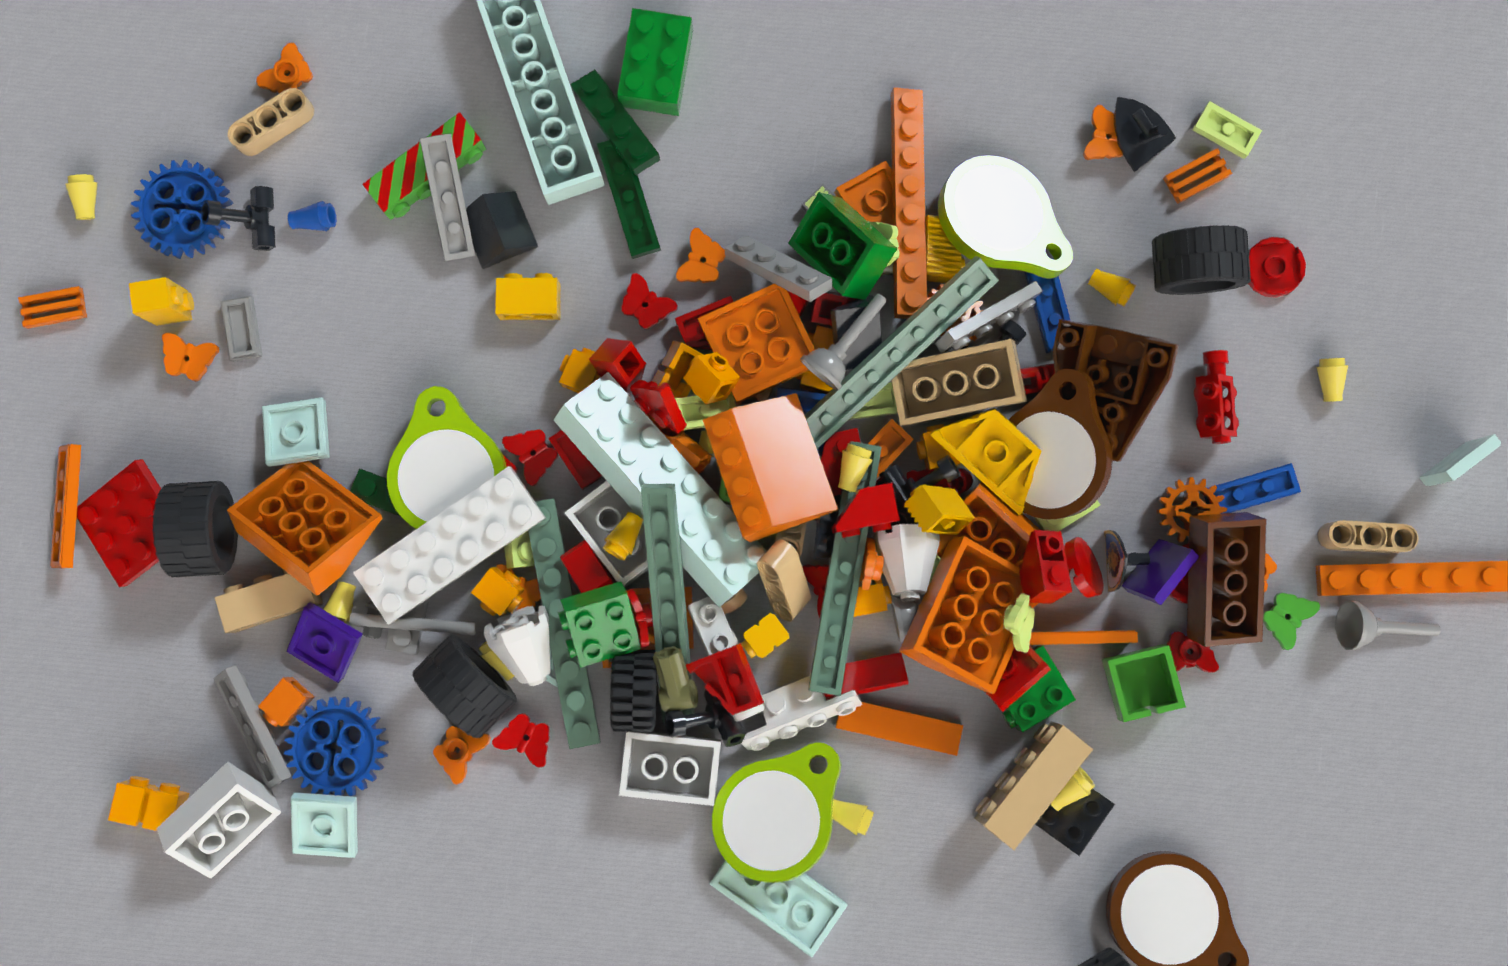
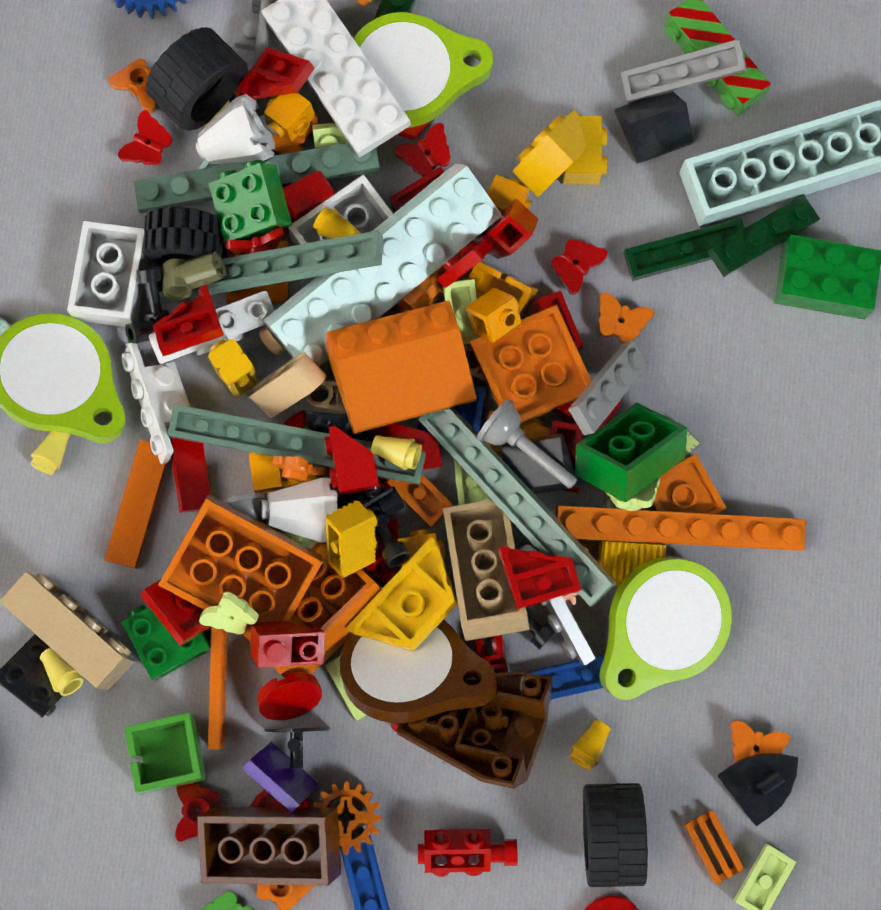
camera: 90 degrees right, 5 degrees down
(460, 606) = (275, 75): none -> red wing
(538, 324) = (551, 153): none -> yellow slope
(974, 328) = (538, 576): none -> red wing

